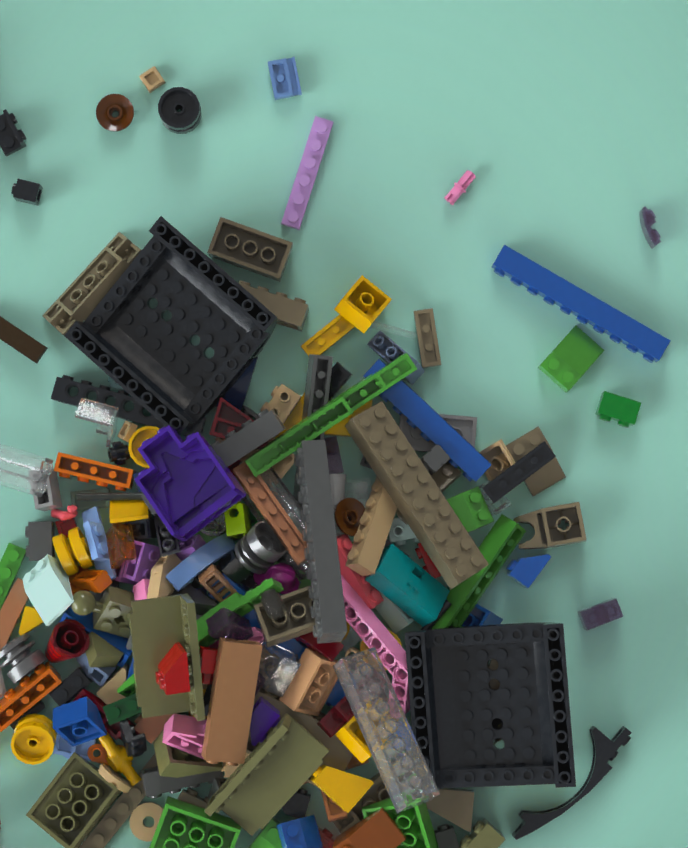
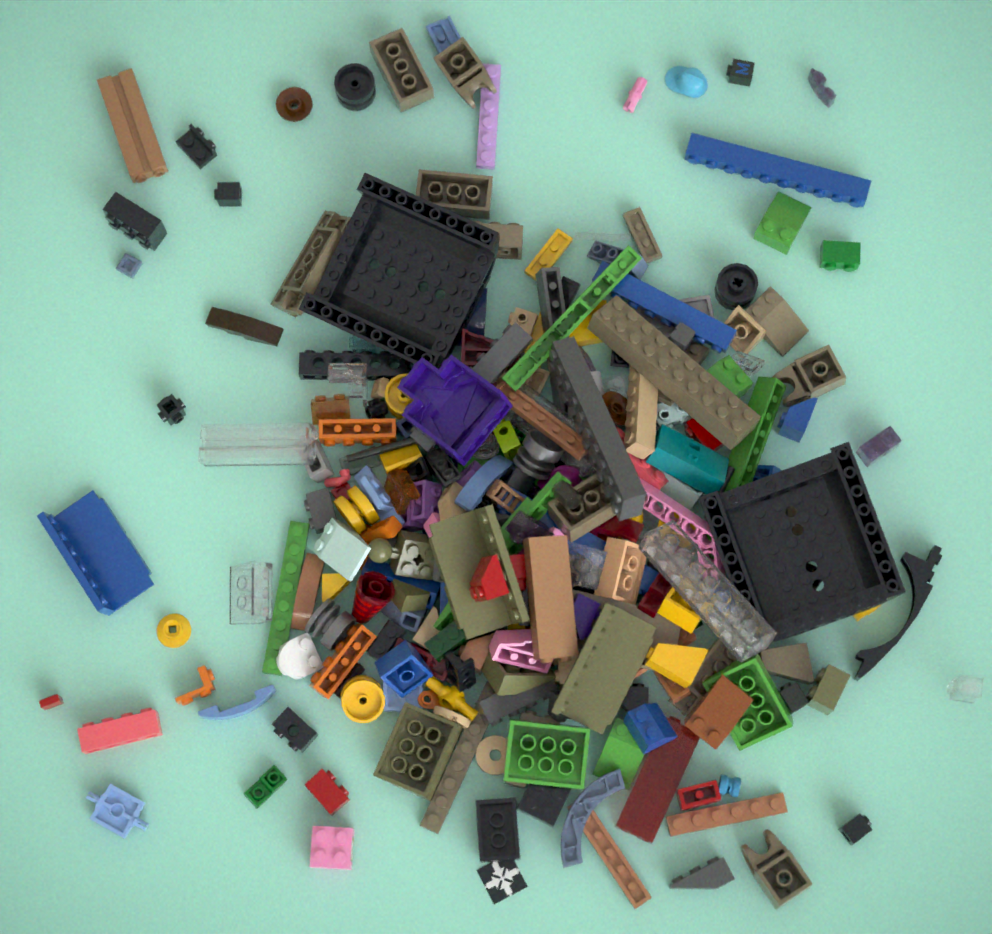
camera: 10 degrees left, 10 degrees down
(74, 440) = (330, 408): none -> clear orange bracket
(152, 79) = (321, 68): tan tile -> none
(230, 103) = (401, 70): none -> dark tan brick
(296, 128) = (464, 70): none -> dark tan brick
(362, 304) = (573, 217): yellow brick -> none
(513, 408) = (736, 286): none -> black wheel
(515, 185) = (686, 81): none -> medium azure piece
(519, 472) = (764, 329): black tile -> none
(572, 190) = (740, 72): none -> pearl dark grey brick

